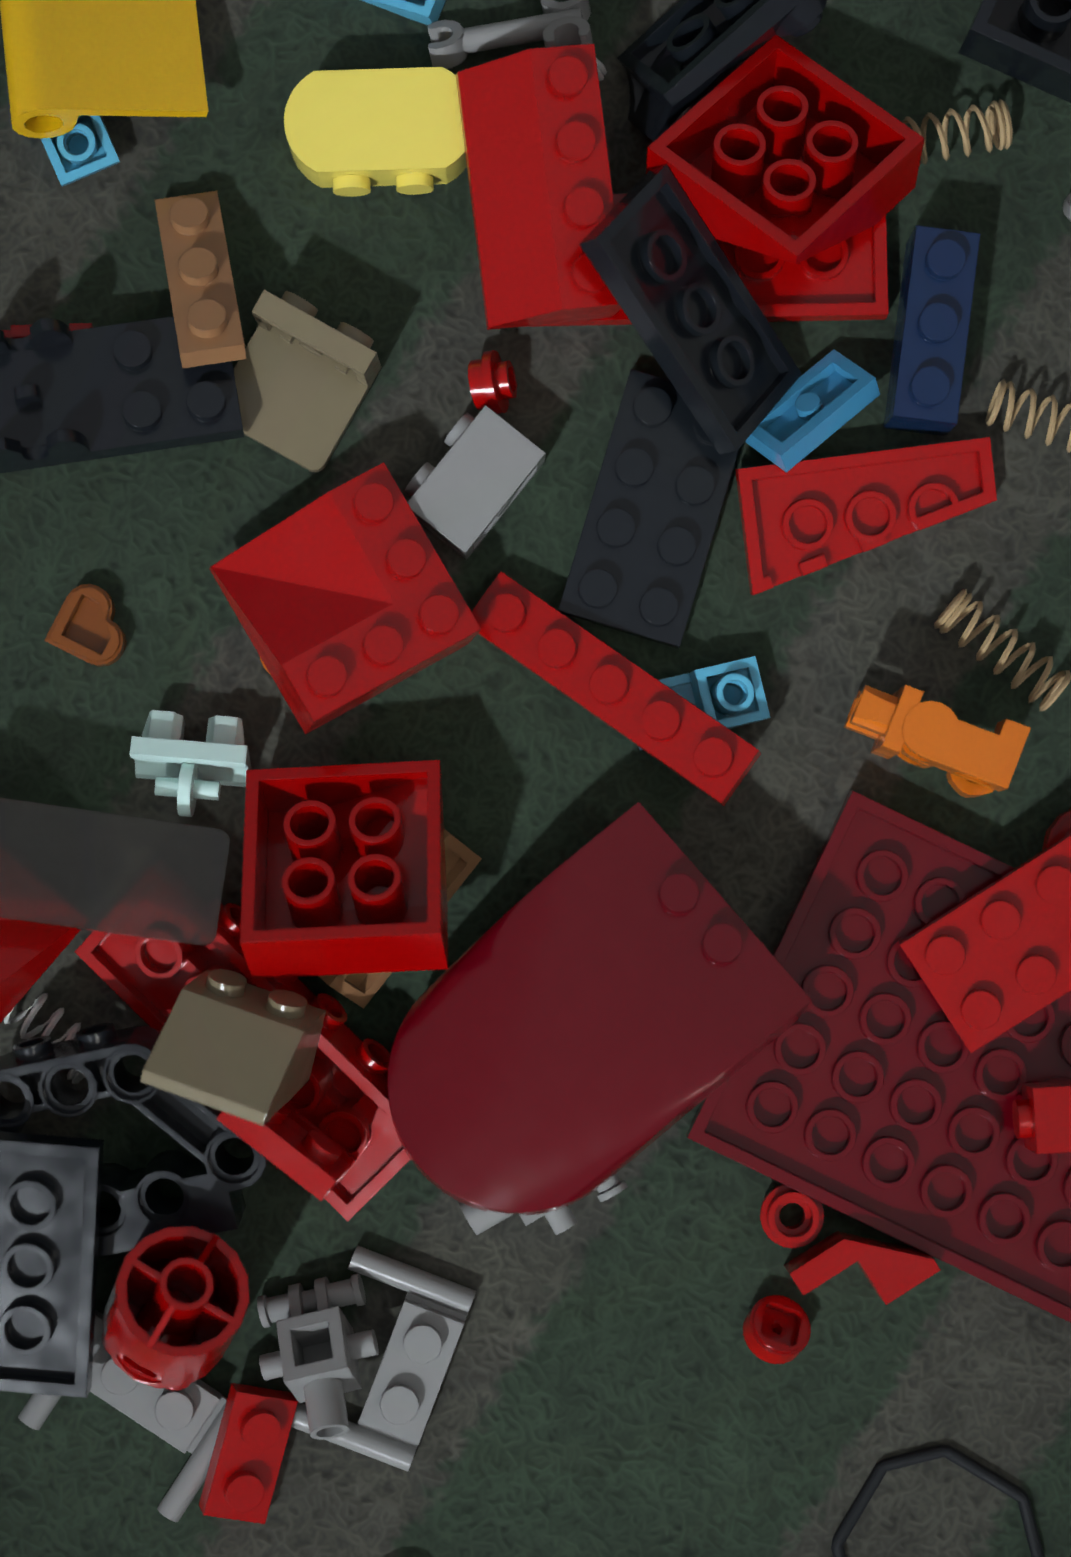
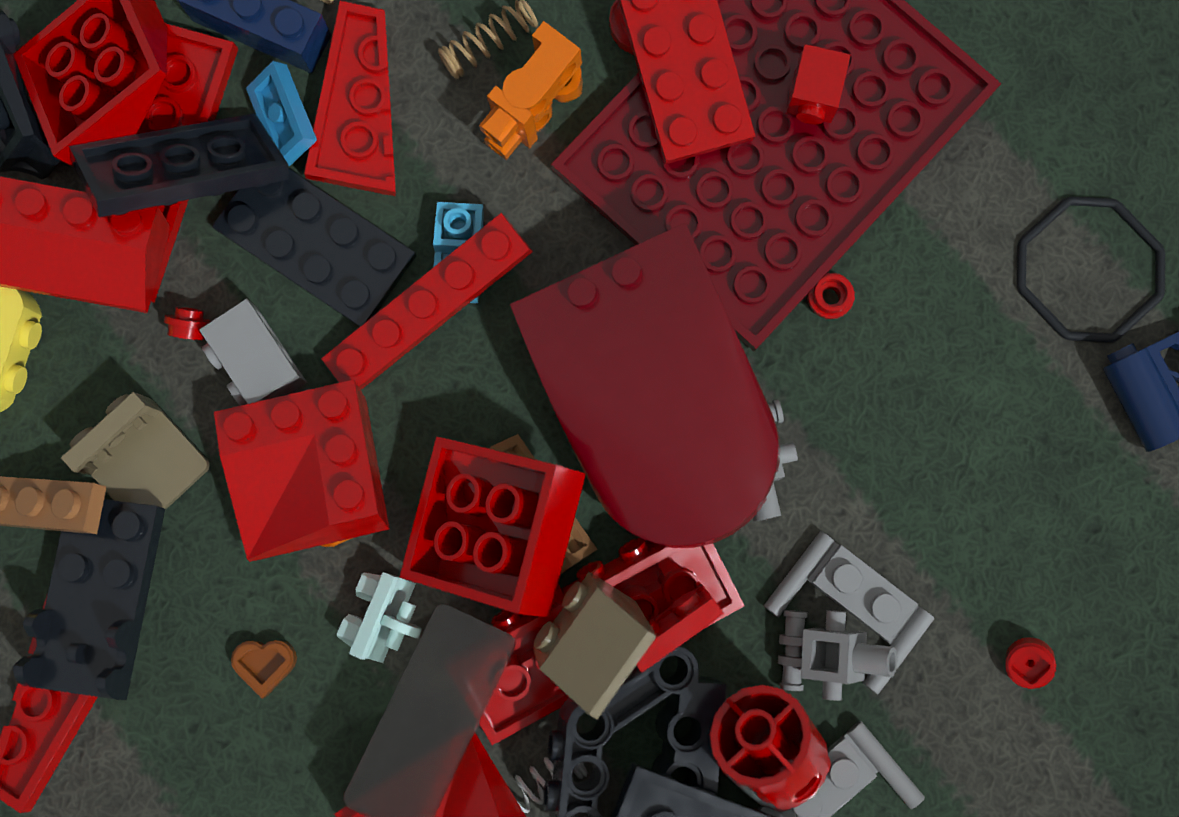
camera: 65 degrees left, 5 degrees down
(248, 1453) = (890, 729): red plate -> none
(776, 1329) = (907, 329): red tile -> none
(888, 1266) = (887, 241): red slope -> none

